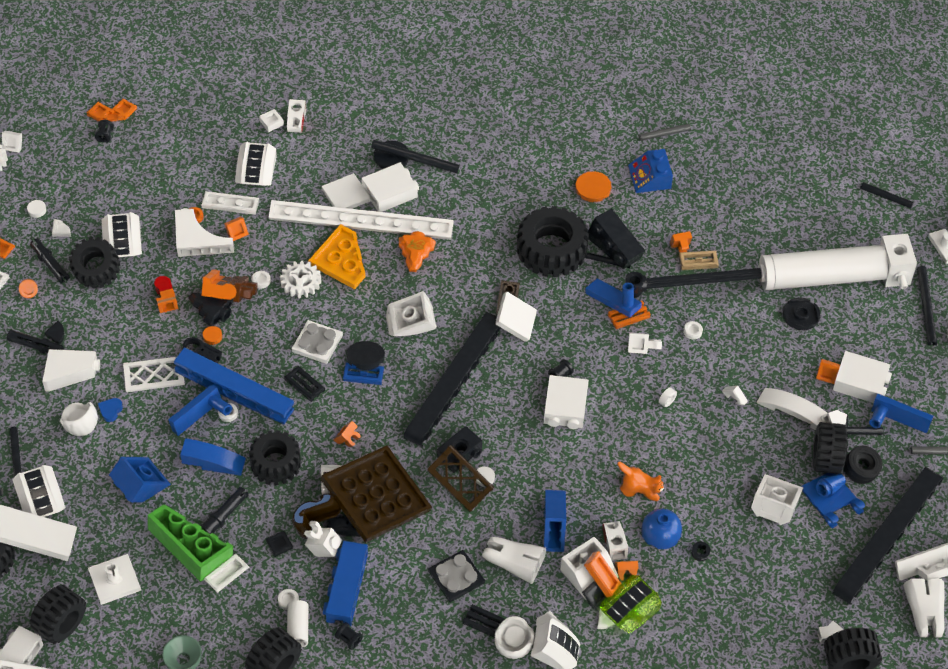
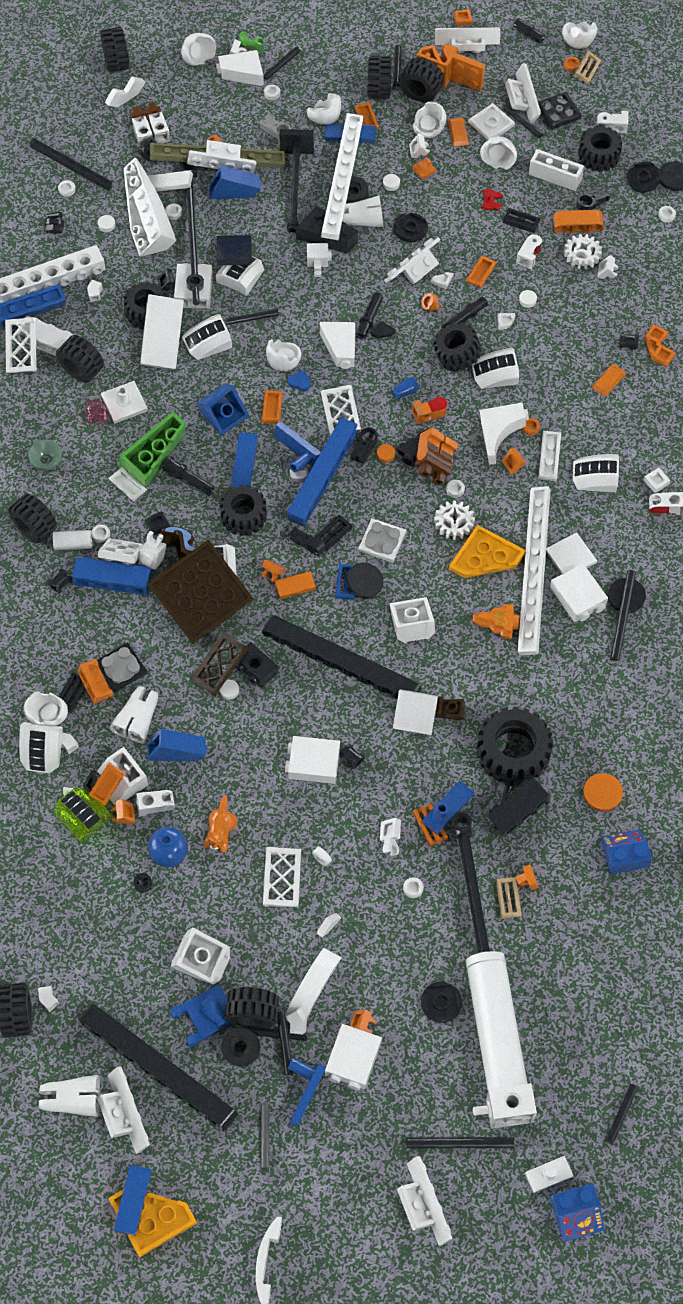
camera: 90 degrees right, 10 degrees up
(124, 605) = (95, 411): none -> clear pink piece
(134, 312) = (406, 387): none -> blue cone
(140, 435) = (272, 407): none -> orange tile
(145, 152) = (609, 380): none -> orange tile
(318, 571) = (120, 550): none -> white piece
(319, 400) = (308, 542): none -> black piece
(365, 417) = (295, 585): none -> orange tile
(478, 597) = (94, 681): none -> orange hinge
(697, 443) = (267, 885): none -> white window

